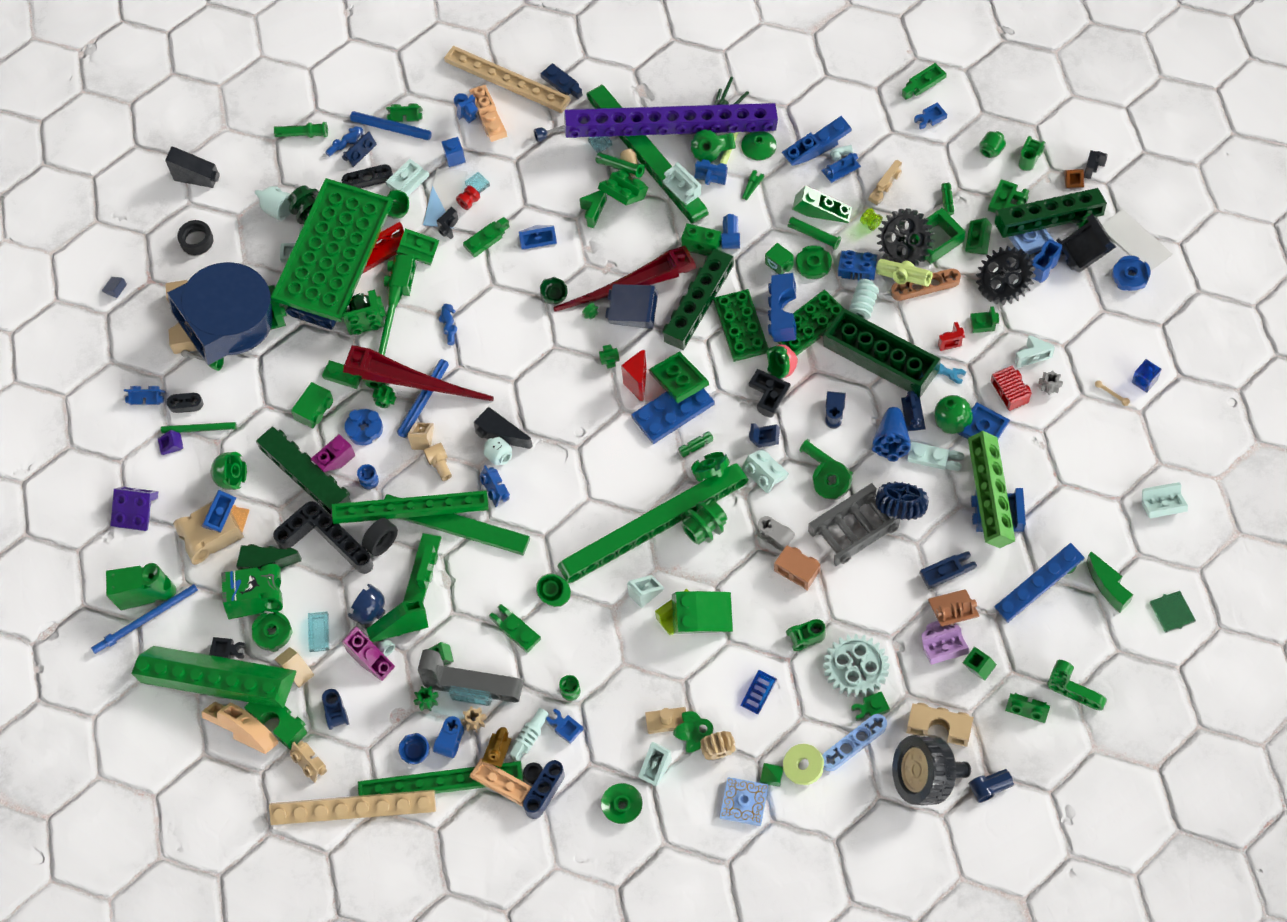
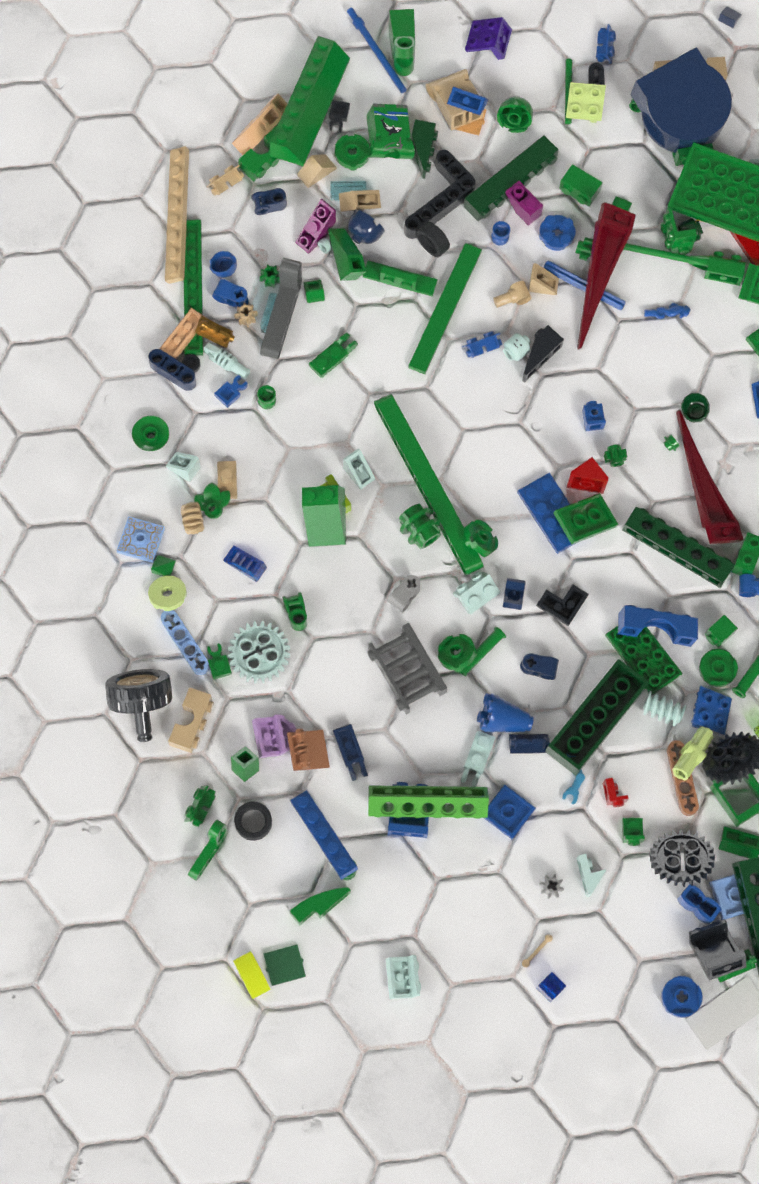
camera: 85 degrees right, 10 degrees up
(170, 442) = (554, 68): dark purple slope -> none
(215, 405) = (586, 101): none -> yellowish green hinge
(334, 615) = (359, 200): none -> tan slope
(410, 507) = (461, 267): green plate -> none
(553, 590) = (366, 388): green hat -> none
(567, 379) = (591, 421): none -> blue brick
(632, 305) = (668, 480): dark blue slope -> none
(695, 444) = (511, 530): green axle -> none
(741, 325) = (646, 586): green tile -> none
(781, 361) = (595, 620): green hair -> none
(797, 567) = (367, 609): nougat hinge -> none
(902, 500) = (418, 715): dark blue gear -> none
(953, 414) = (521, 781): green cylinder -> none
(986, 787) = (125, 754): dark blue piece -> none
(1011, 388) = (548, 844): brick -> none
(1039, 639) = (253, 806): none -> black tyre
(1190, 637) = (251, 975): none -> neon yellow slope

